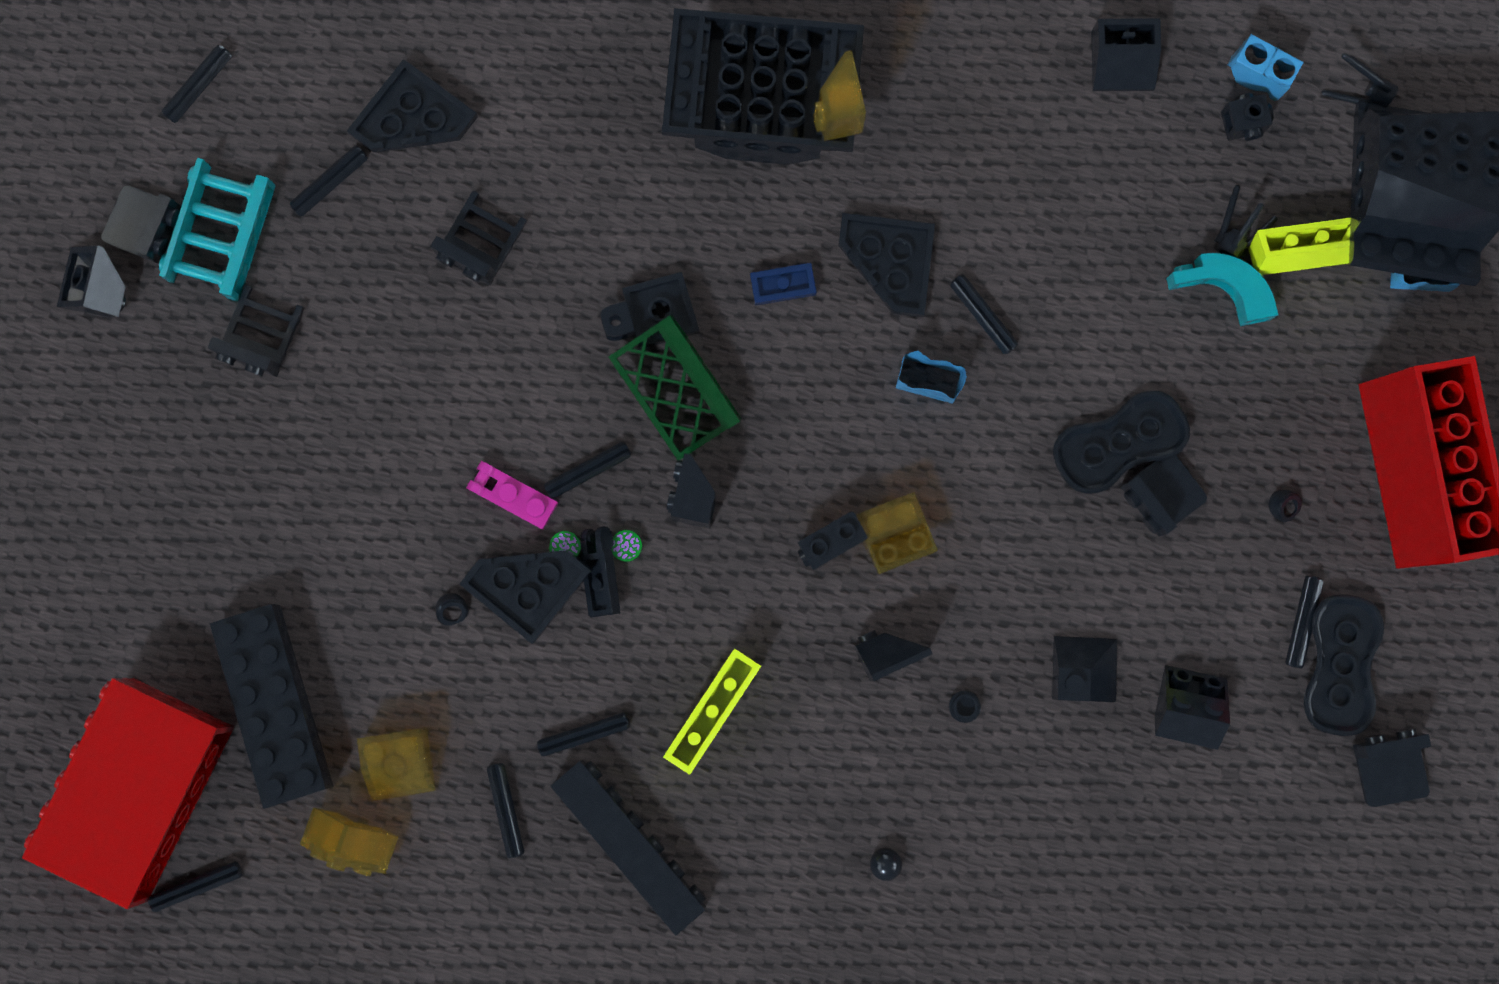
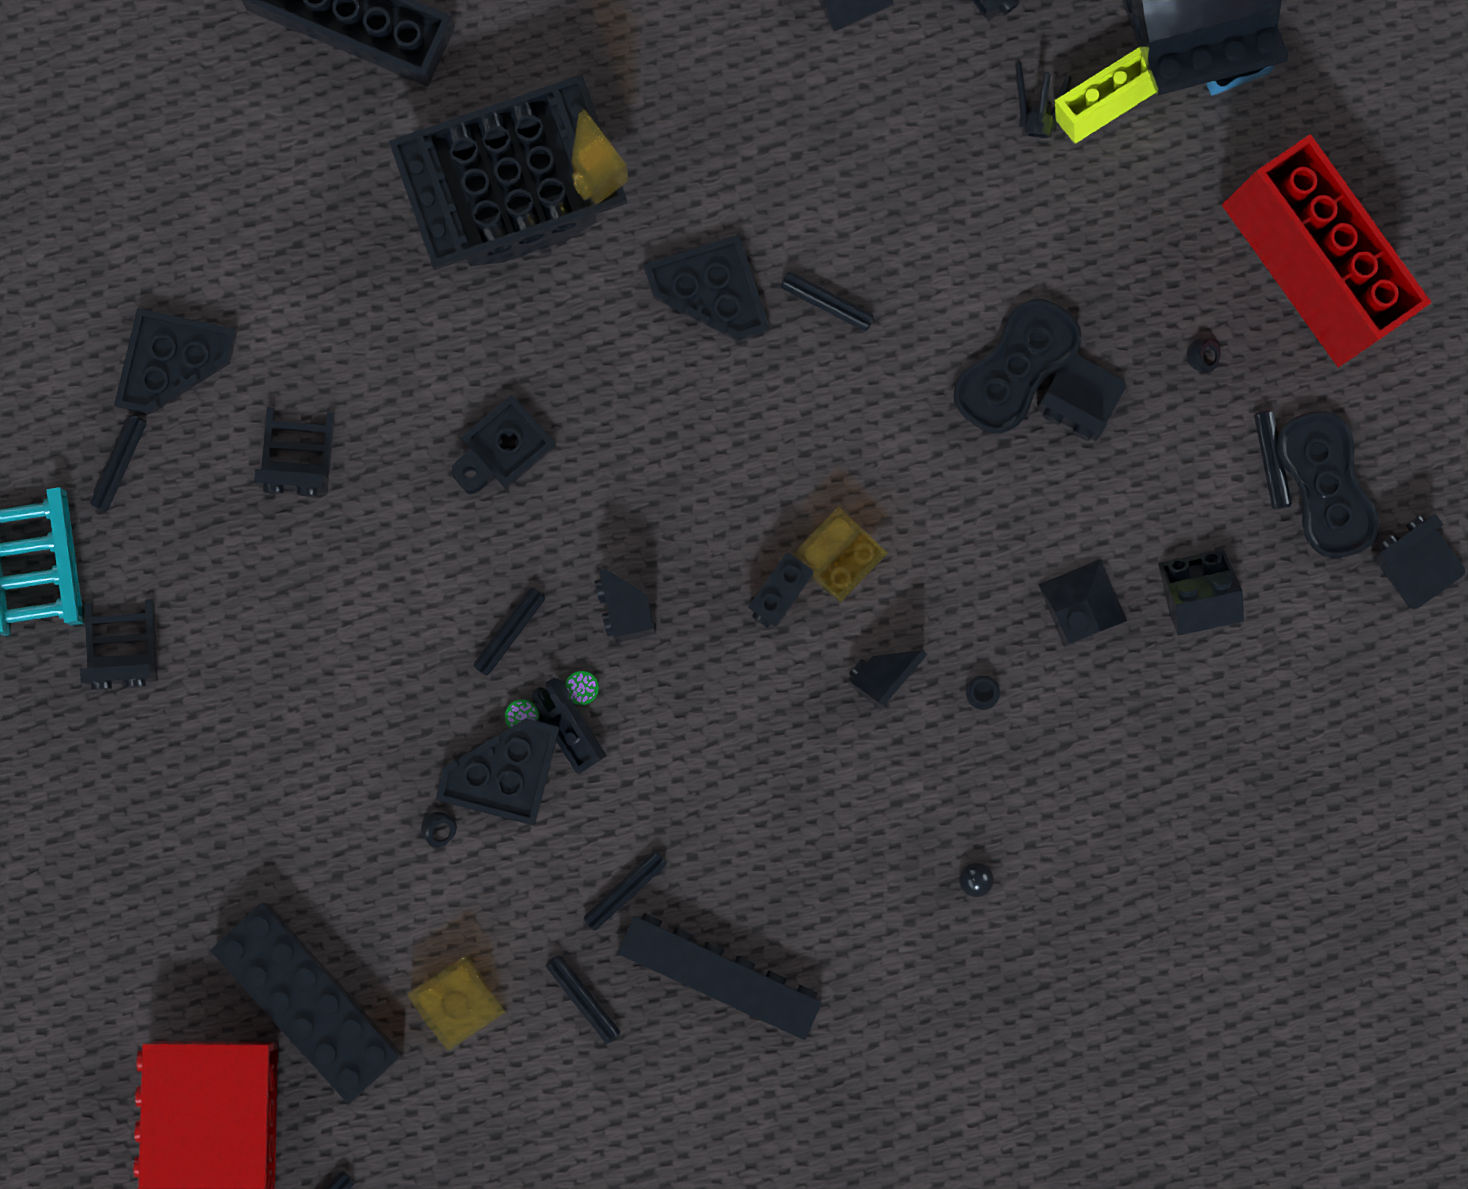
camera: 25 degrees left, 0 degrees up
(348, 843) = (445, 1100): clear yellow brick -> none
(513, 496) = (447, 690): dark pink plate -> none
(698, 373) = (574, 486): dark green fence -> none
(712, 711) = (740, 808): neon yellow brick -> none
(783, 284) = (617, 361): dark blue plate -> none
(919, 357) = (782, 373): dark azure piece -> none
(1239, 279) = (1053, 153): teal arch -> none

